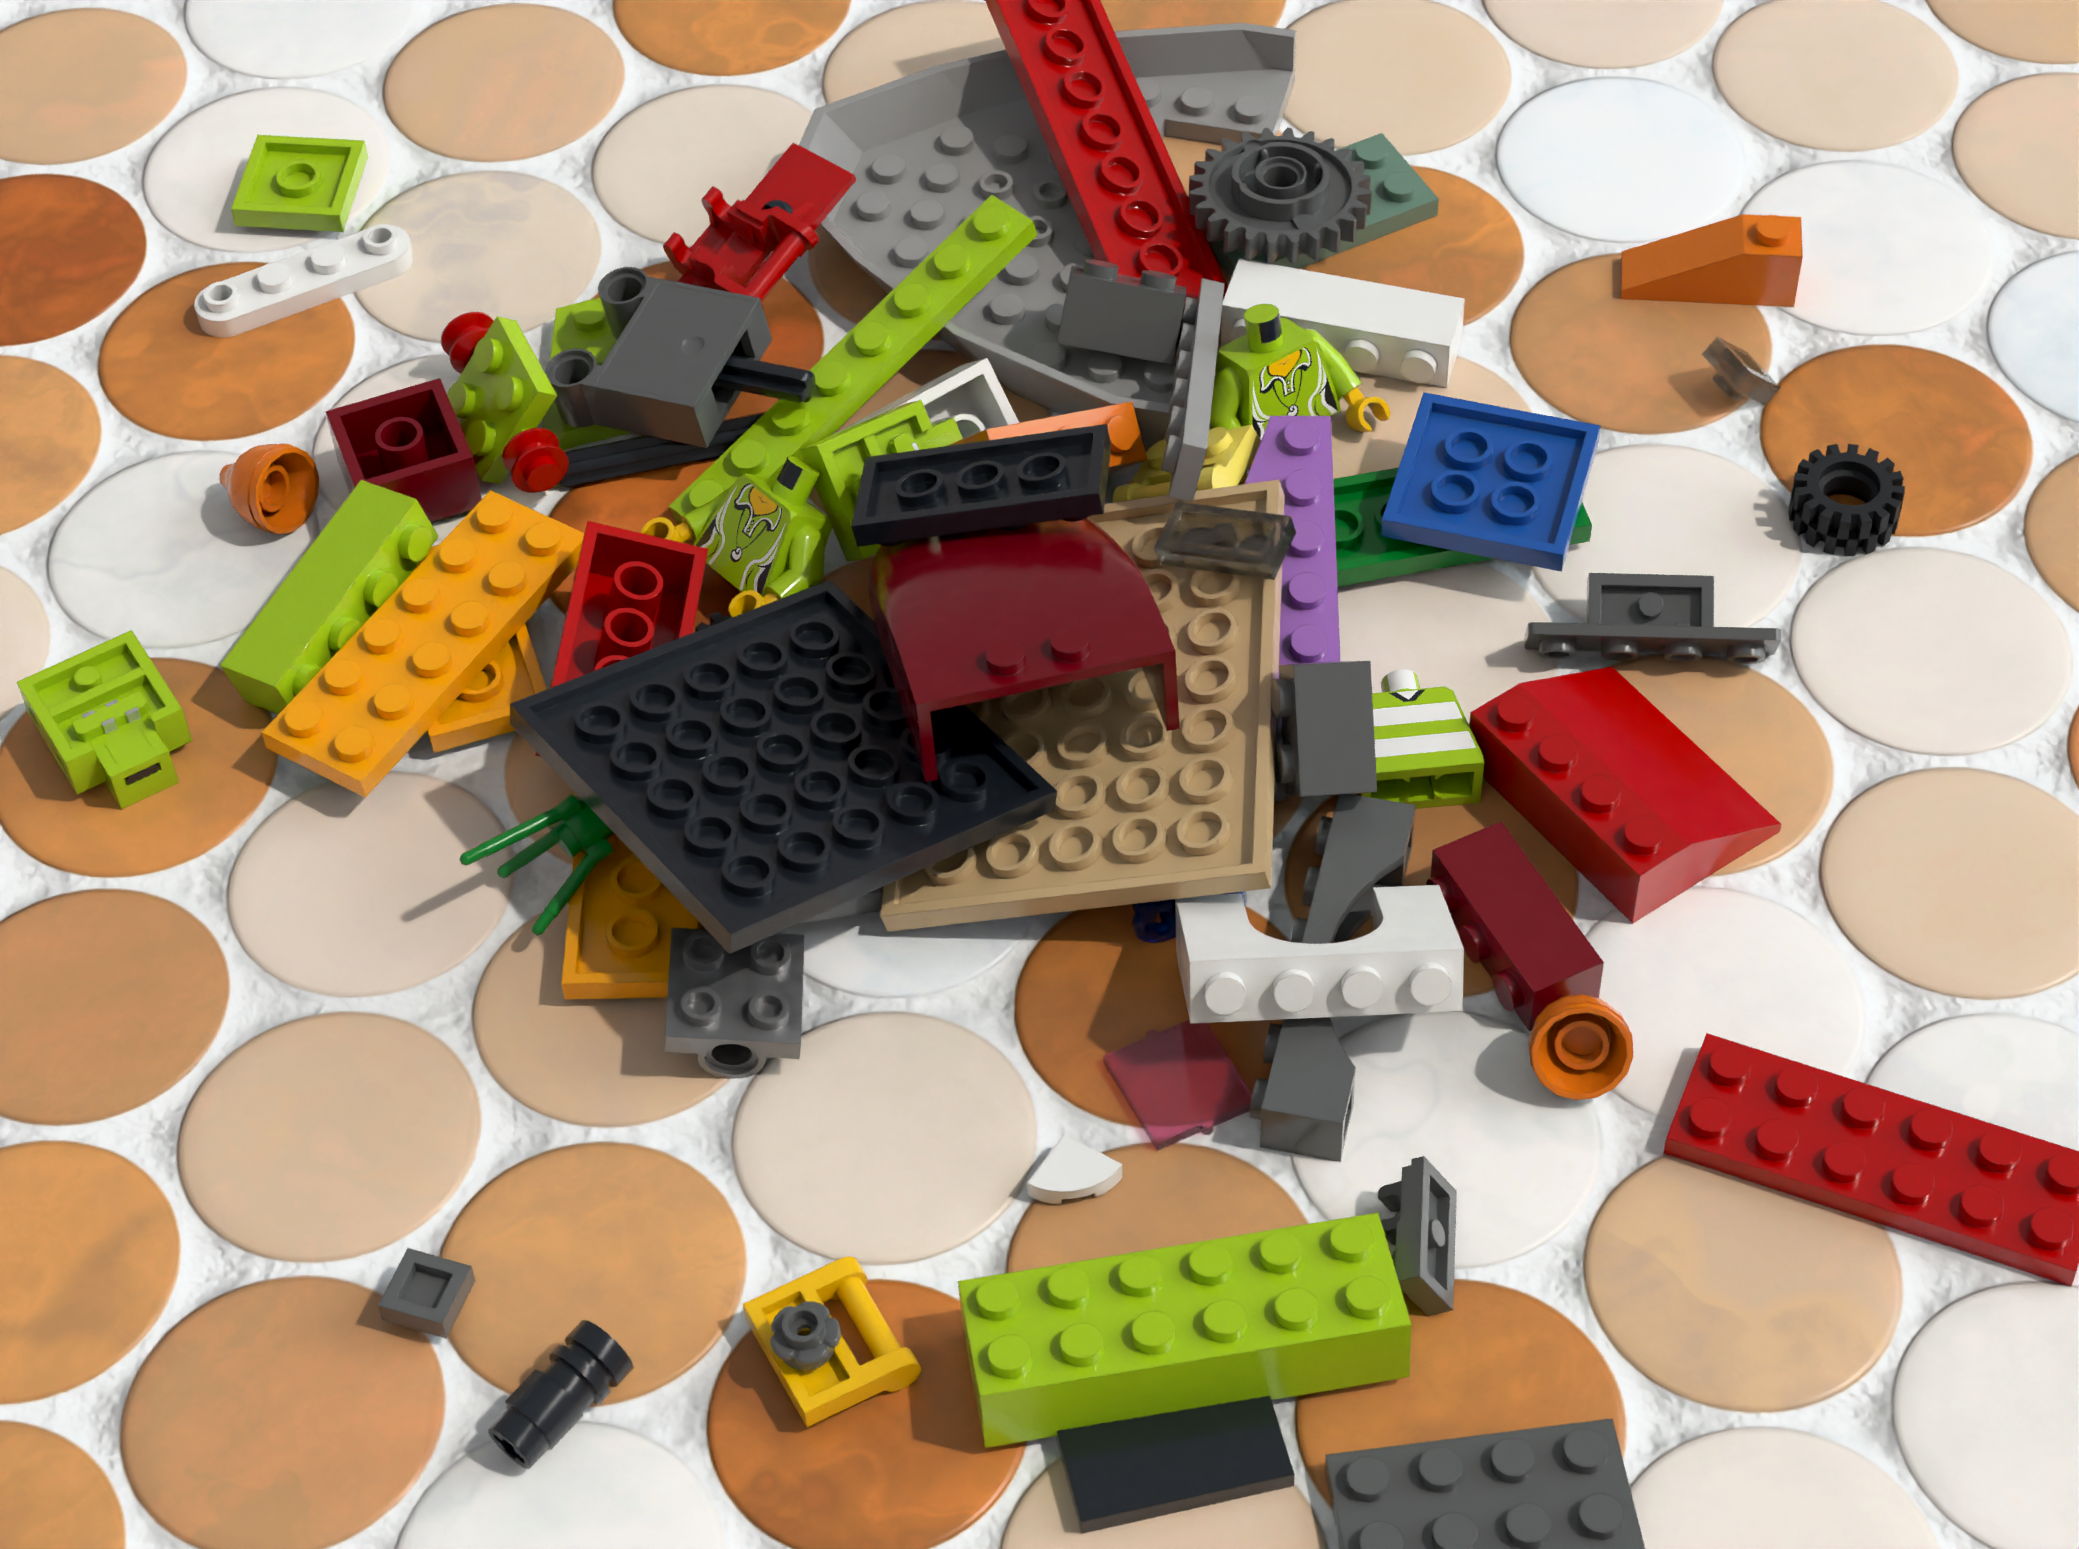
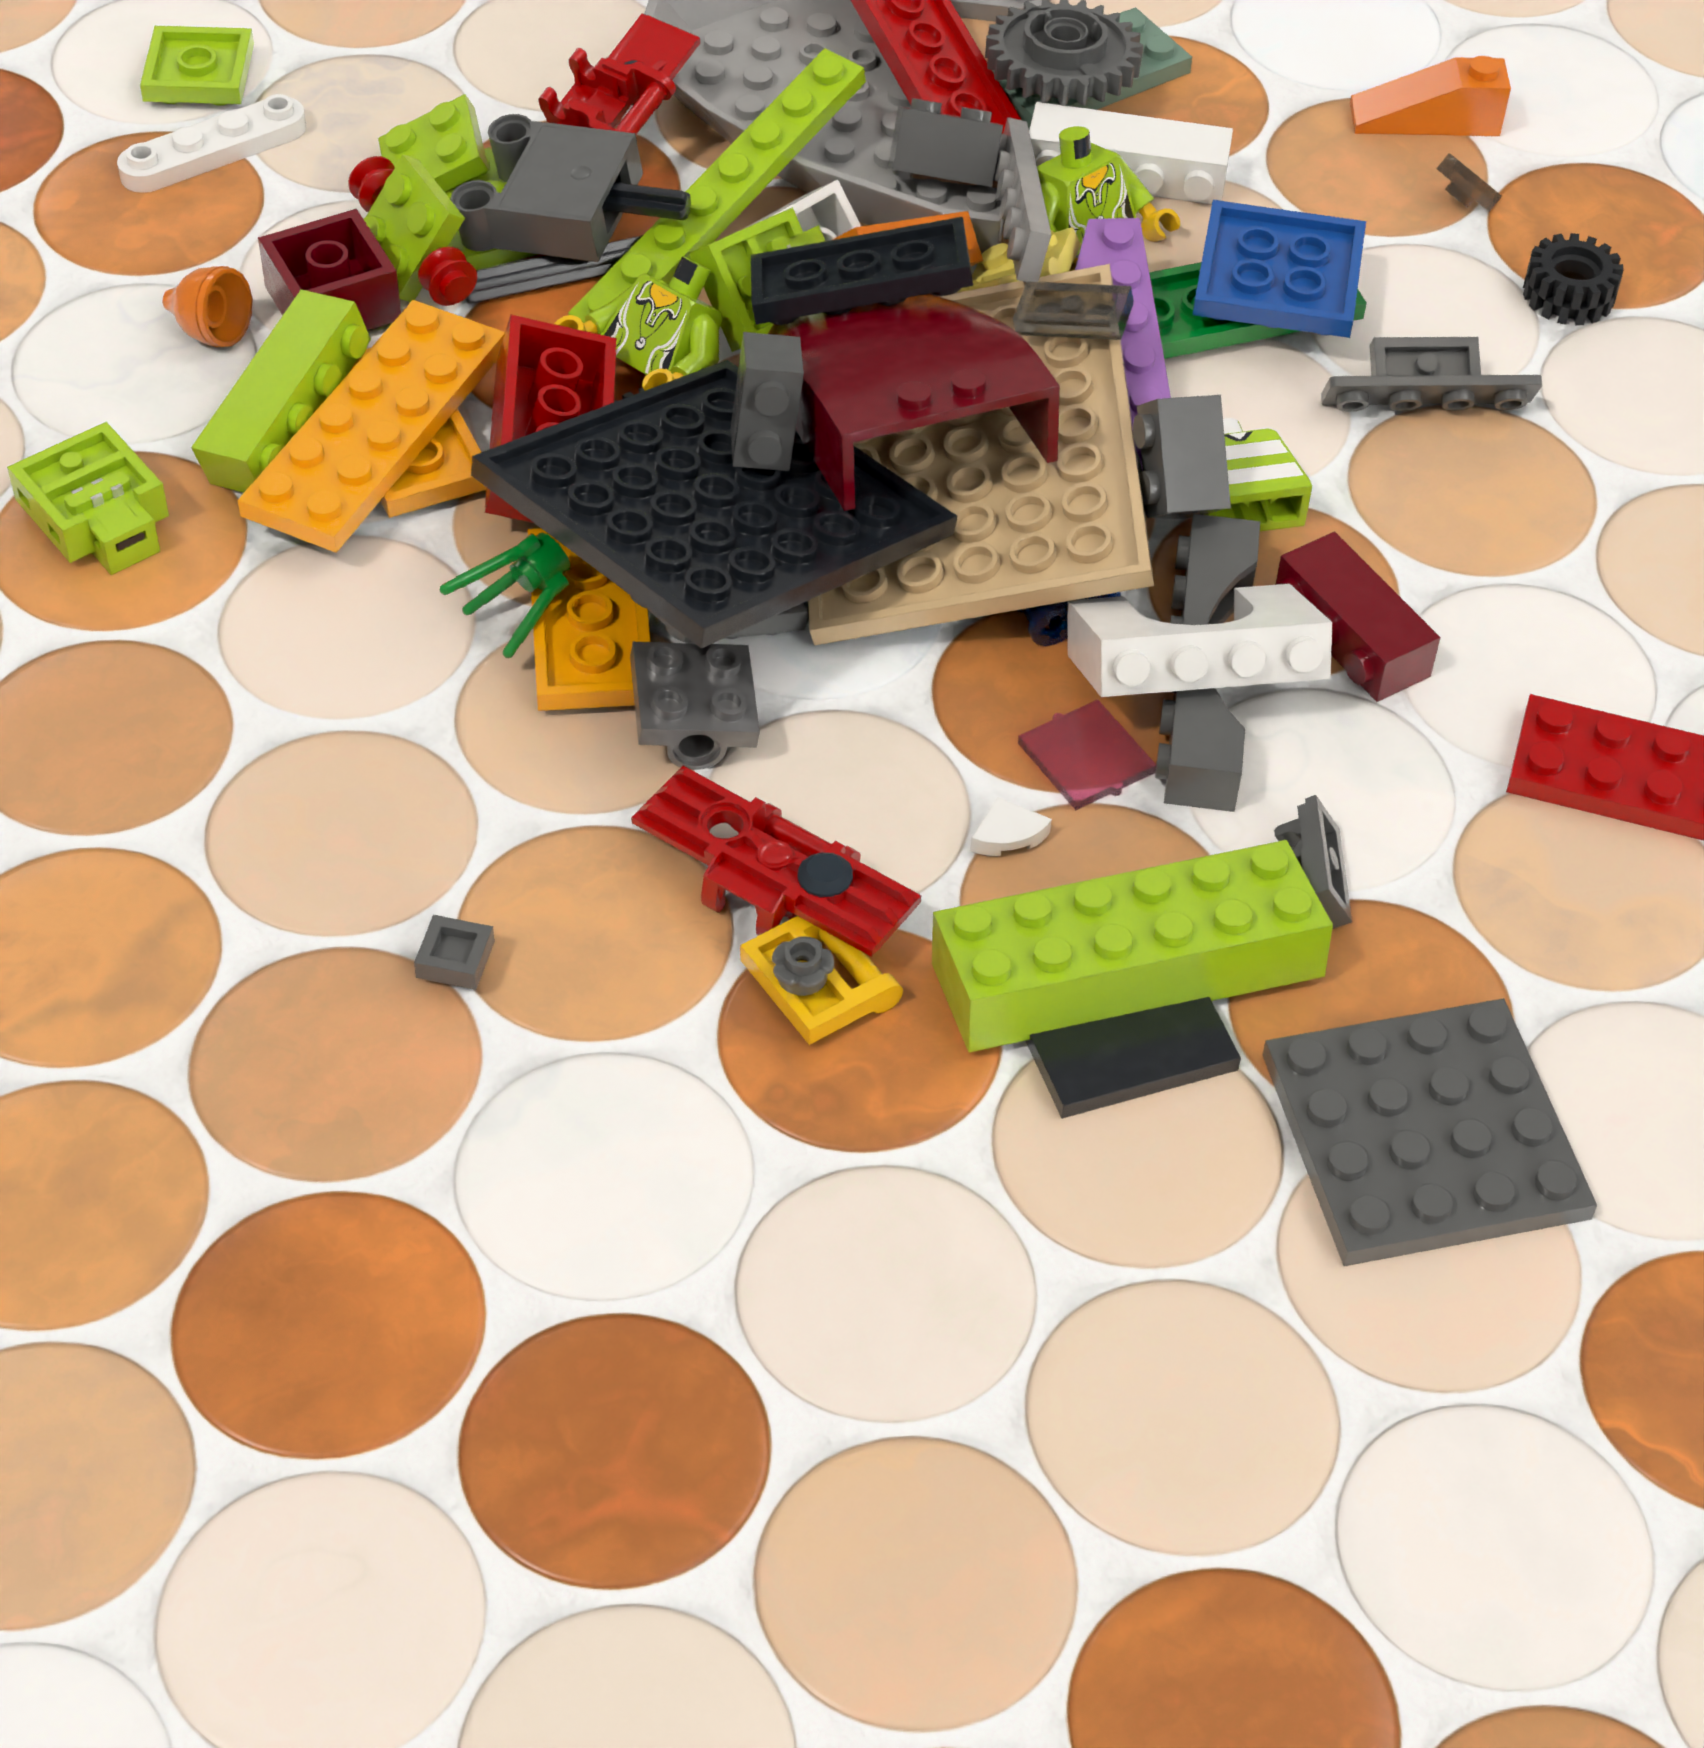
camera: 10 degrees left, 0 degrees up
(550, 295) = (443, 141): none -> lime plate
(555, 1399) = (584, 1031): black axle -> none
(845, 1243) = (775, 863): none -> red piece
(846, 650) = (766, 401): none -> dark grey brick
(1580, 1047) = (1430, 706): orange helmet -> none
(1616, 787) = (1419, 508): red slope -> none

